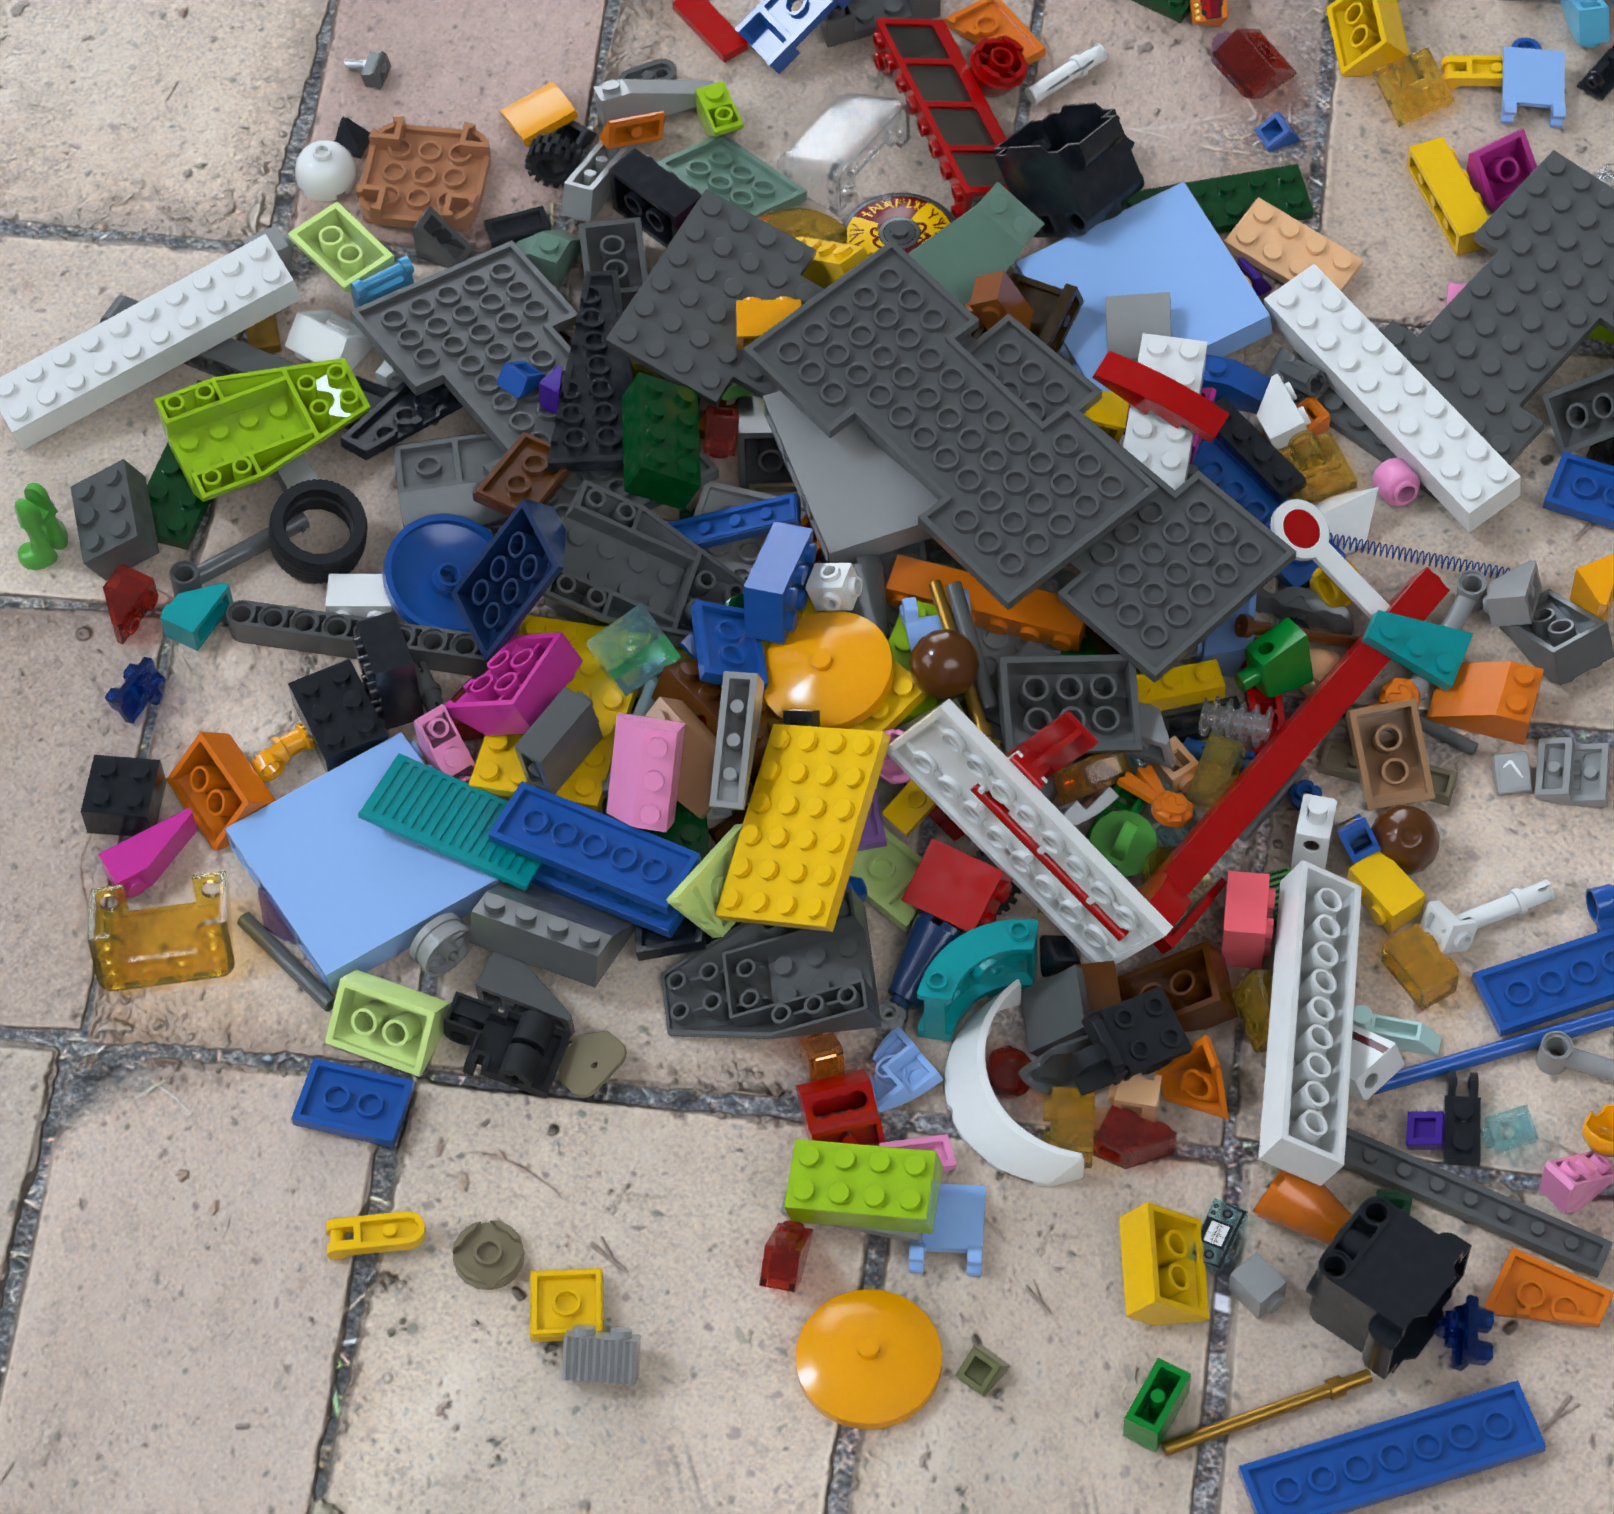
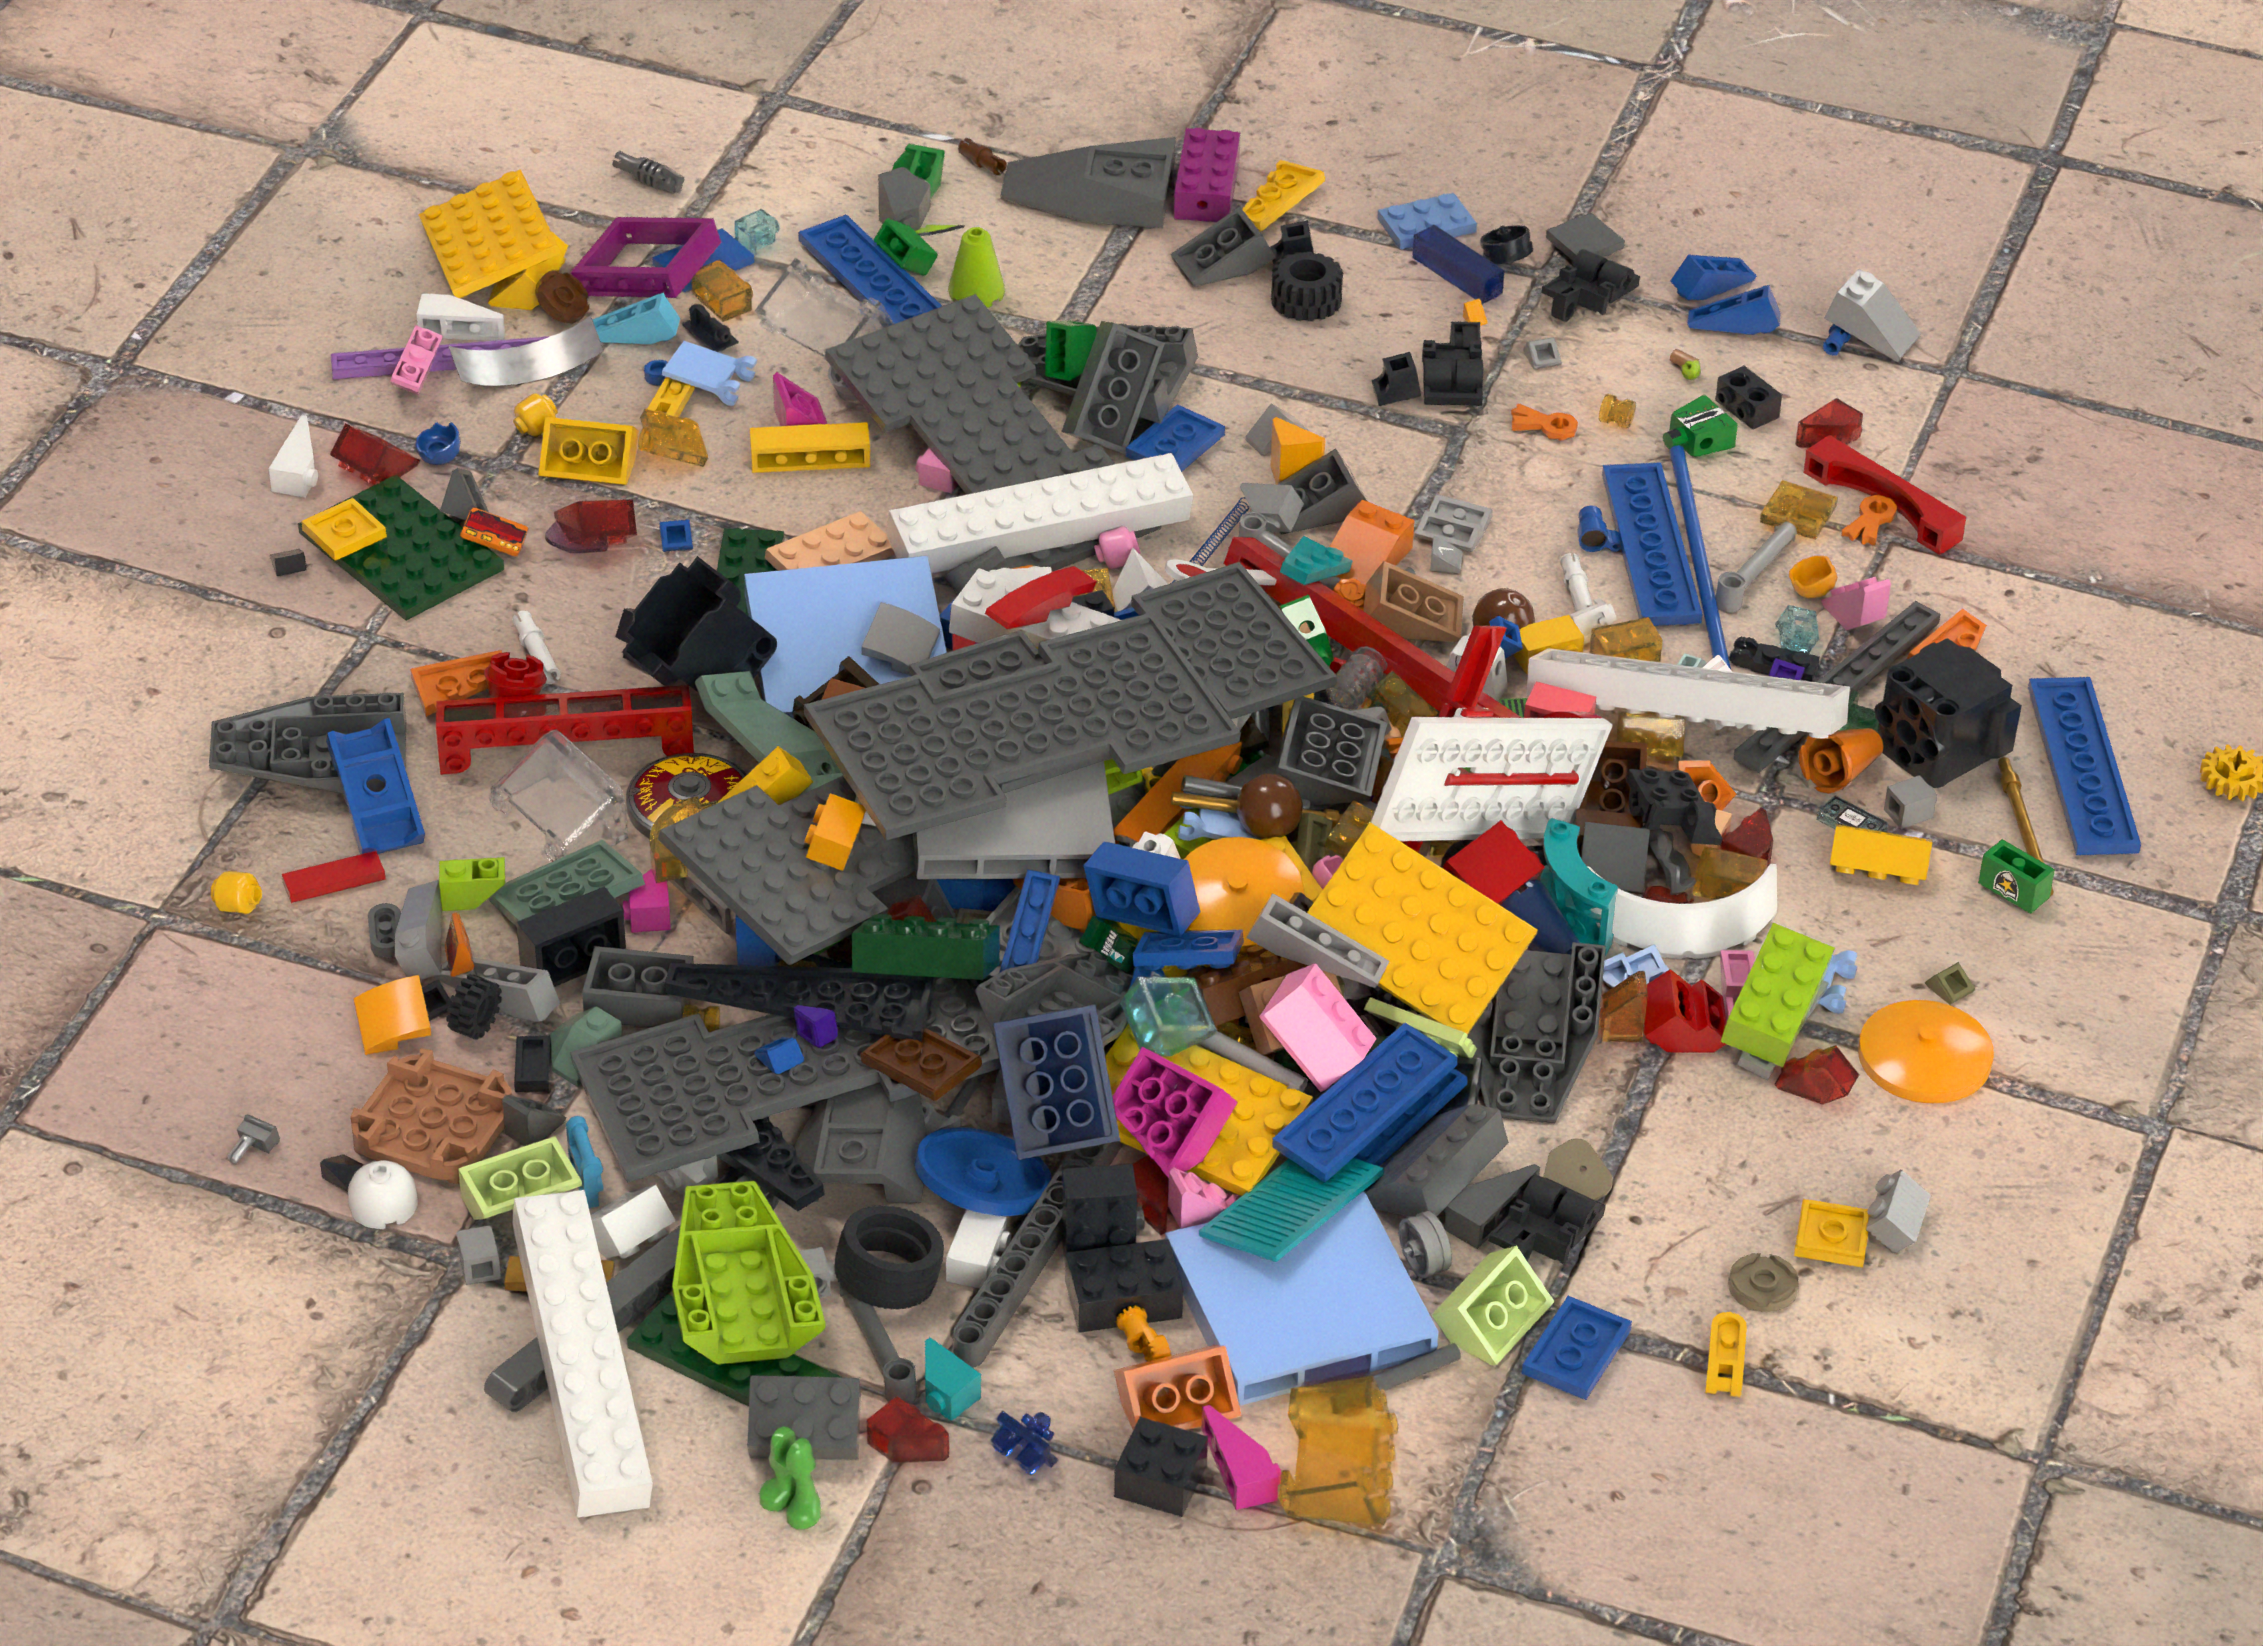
camera: 80 degrees left, 15 degrees down
(559, 740) = (1257, 1082): dark grey brick -> none

